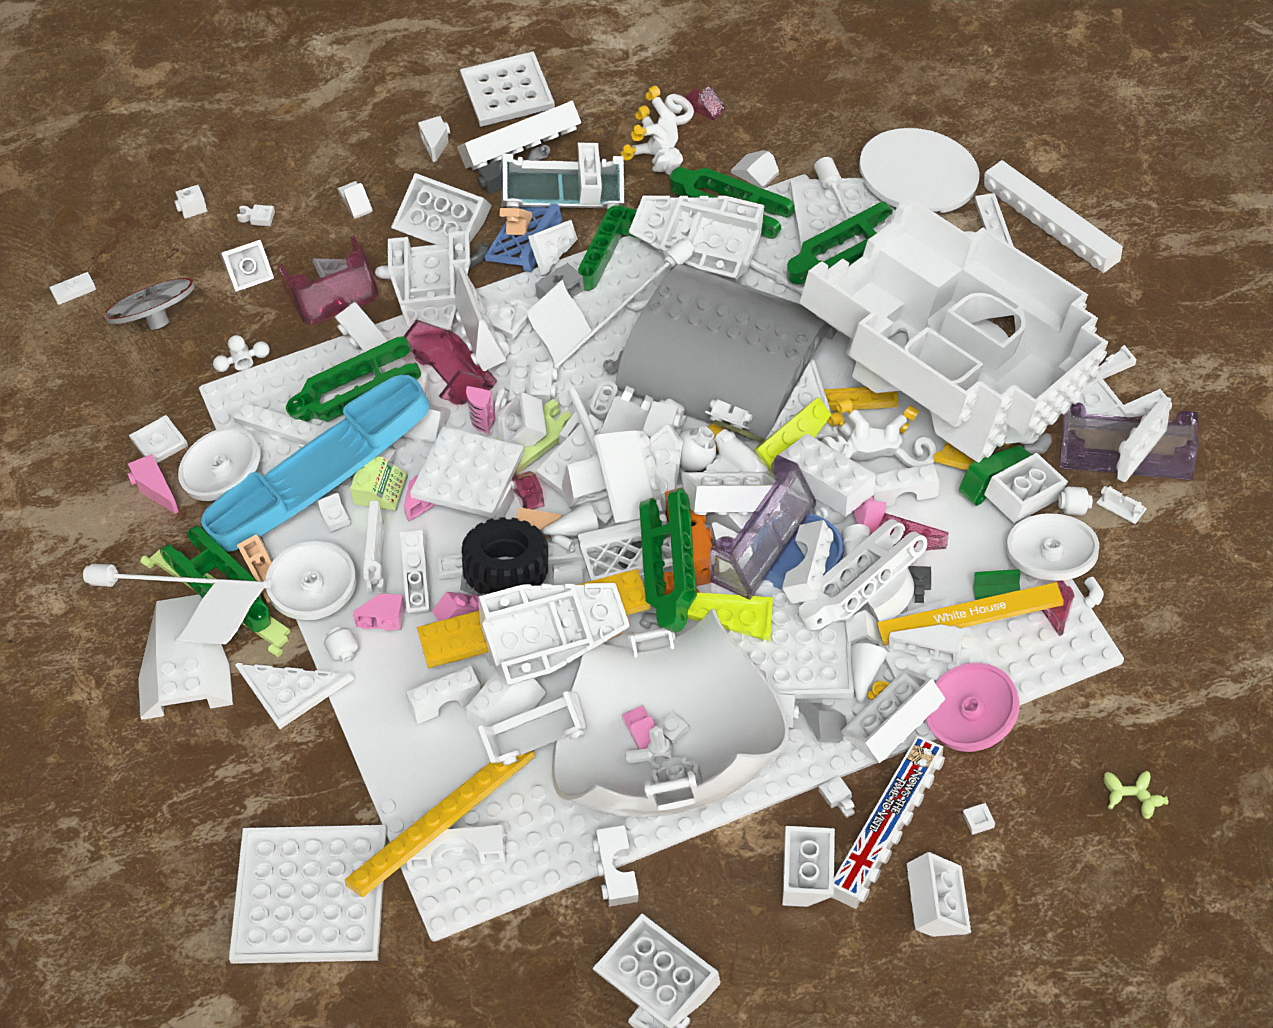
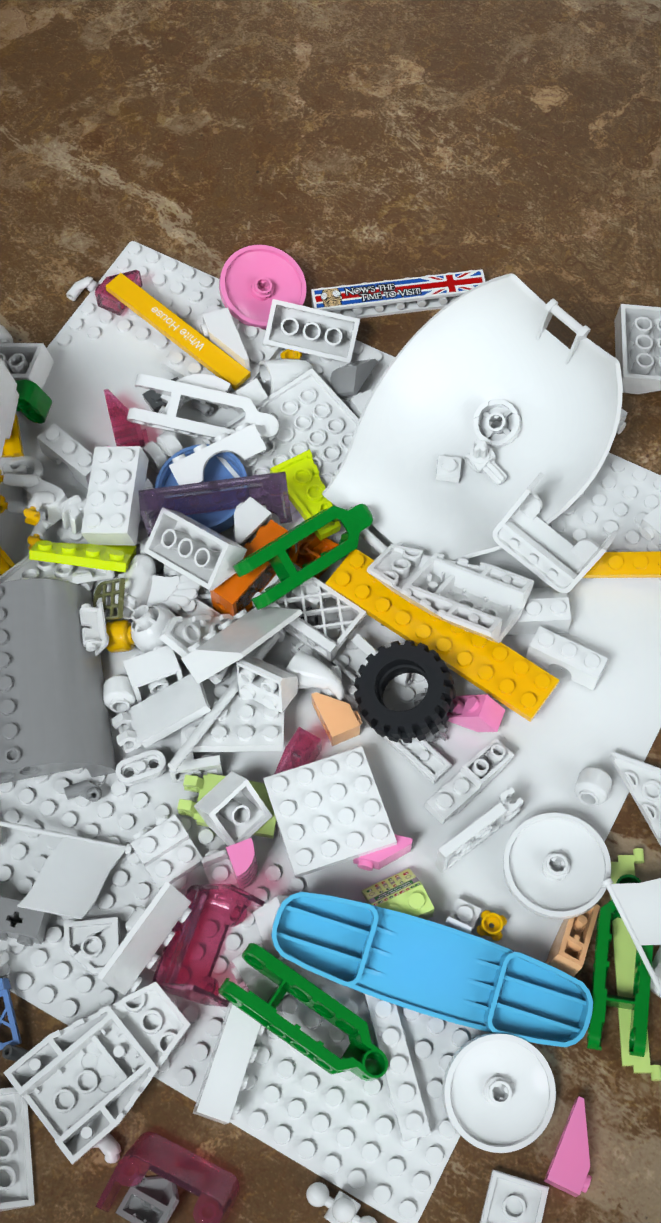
camera: 130 degrees left, 10 degrees up
(314, 522) = (488, 918): none -> yellow plate
(381, 612) = (531, 778): bright pink slope -> none
(639, 724) = (467, 490): bright pink slope -> none
(837, 793) = (399, 340): white plate -> none
(938, 896) = (434, 235): white slope -> none
(978, 818) = (348, 248): white plate -> none
(995, 583) = (131, 340): green panel -> none
(1052, 547) = (65, 316): white dish -> none
(1118, 791) = (248, 165): yellowish green piece -> none

